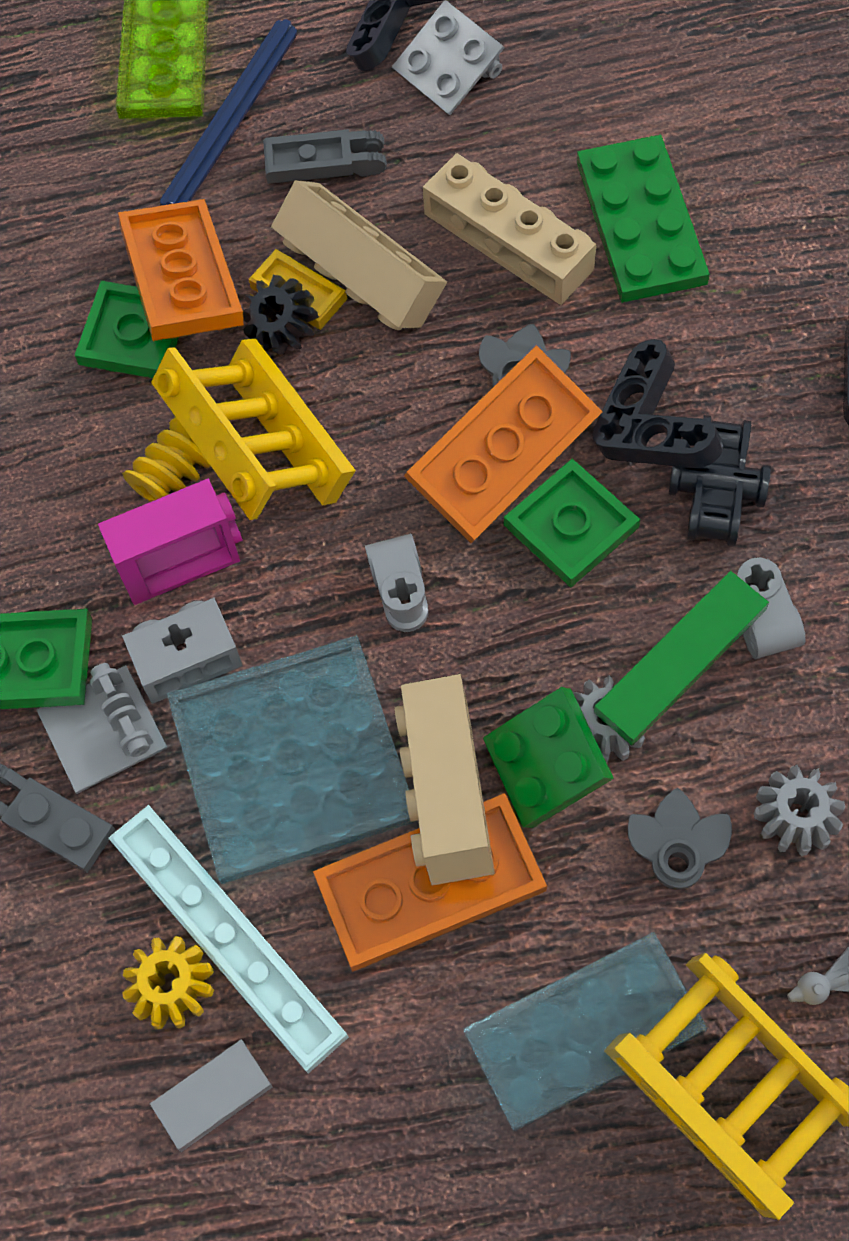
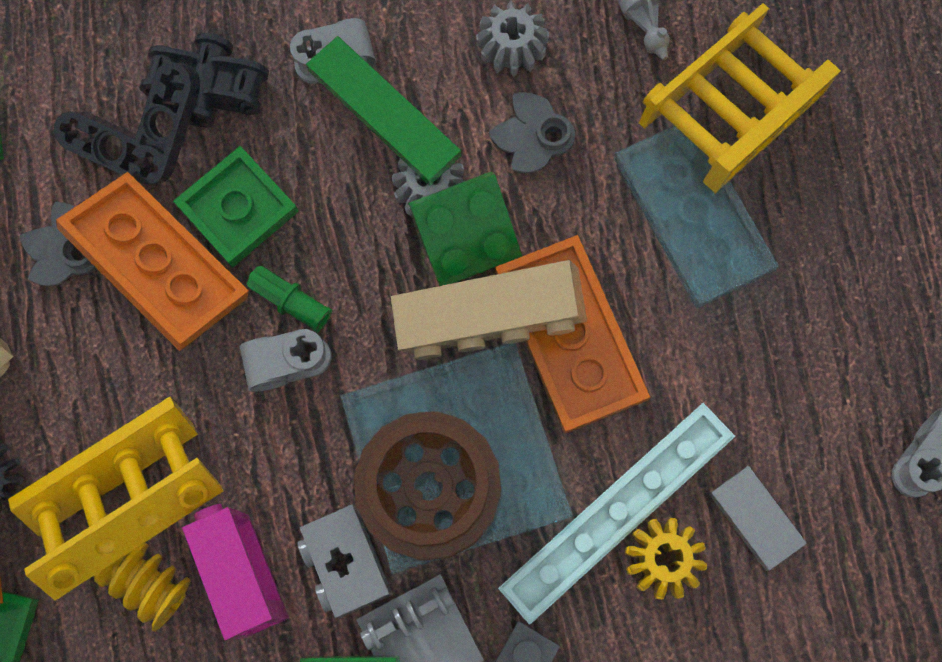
camera: 90 degrees left, 10 degrees up
(251, 755) = (386, 456): none -> reddish brown wheel
(468, 582) = (289, 298): none -> green axle

